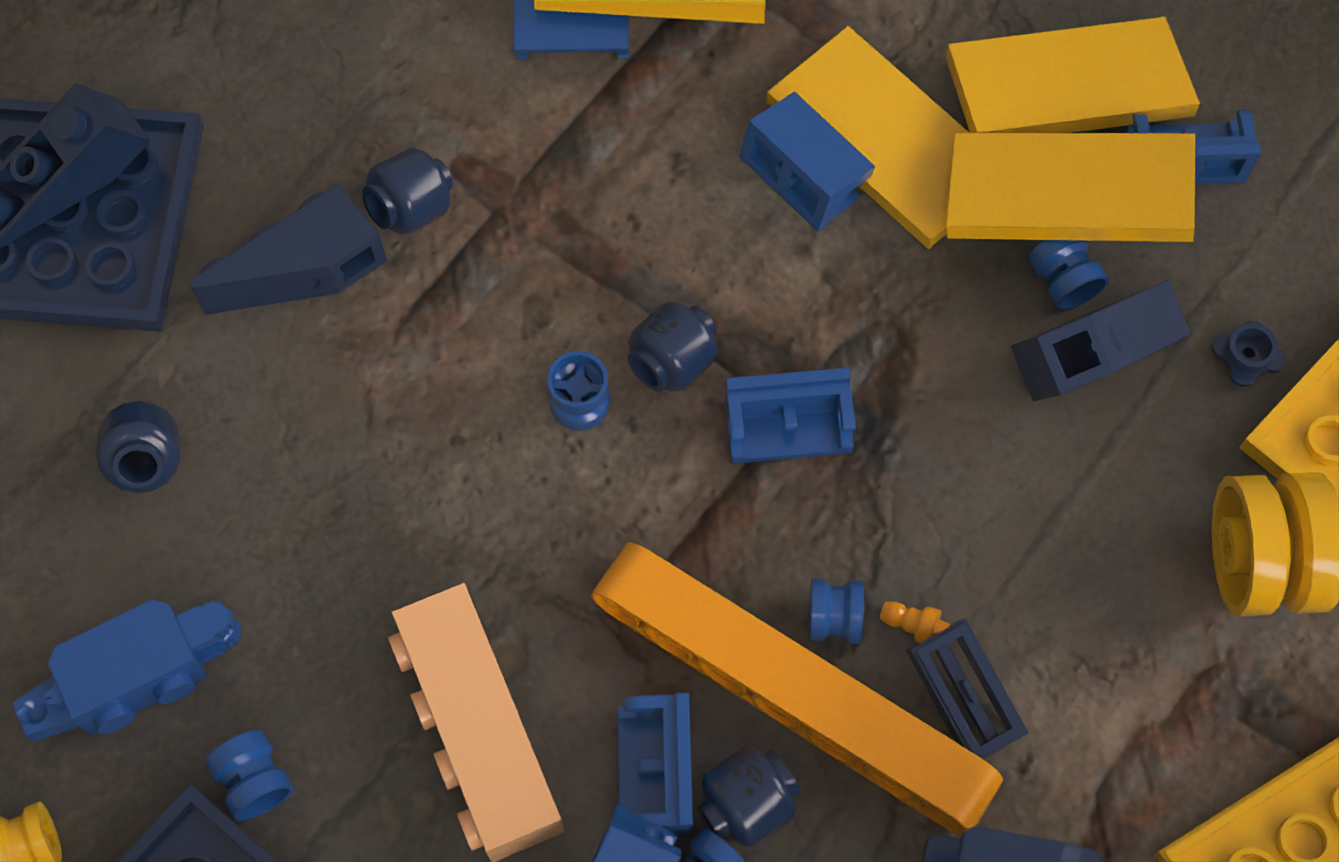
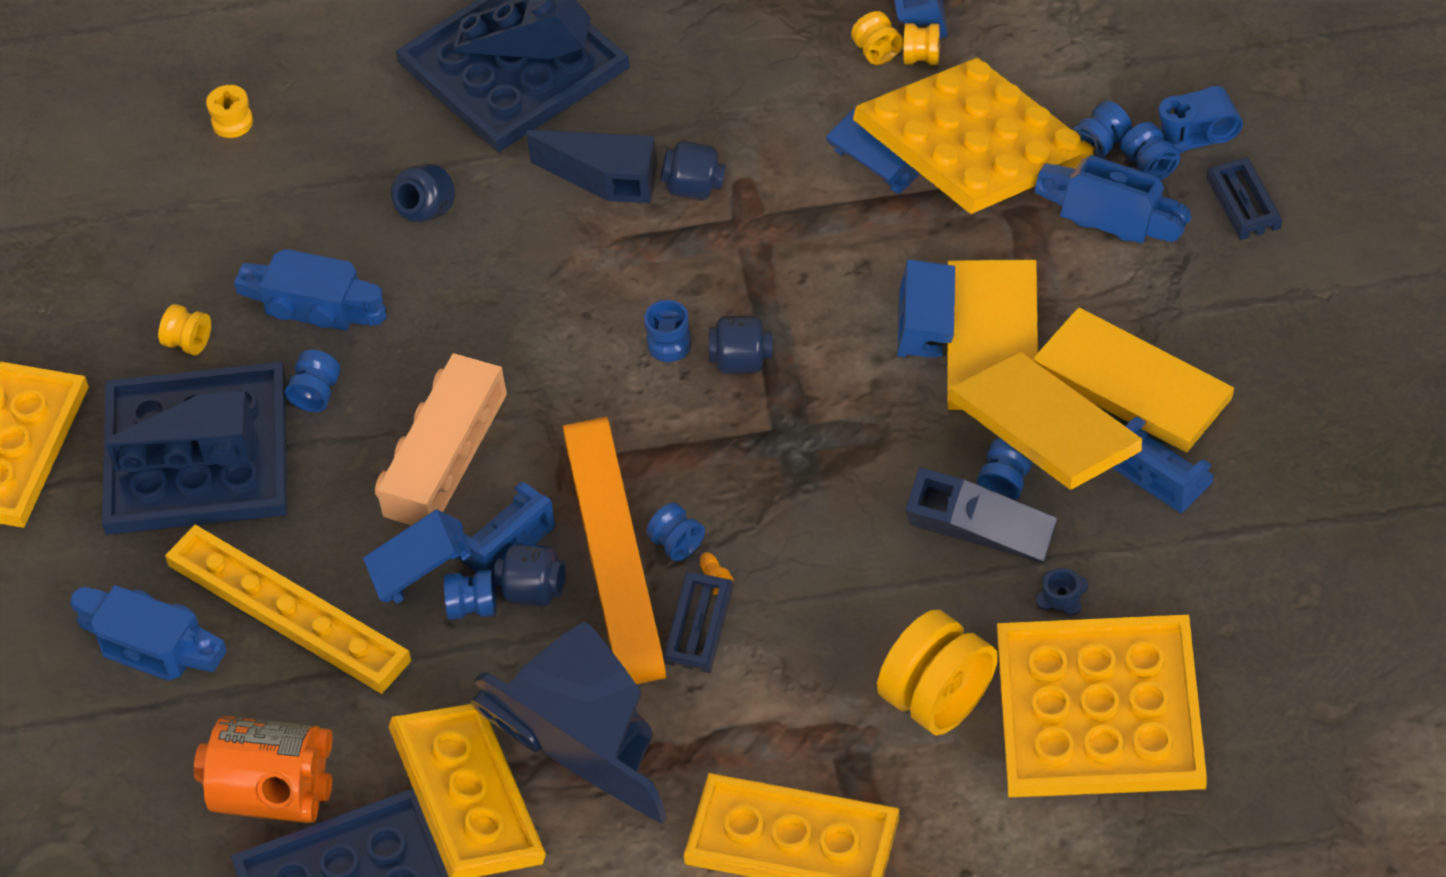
camera: 50 degrees right, 15 degrees down
(789, 415) = (764, 425): blue hinge -> none

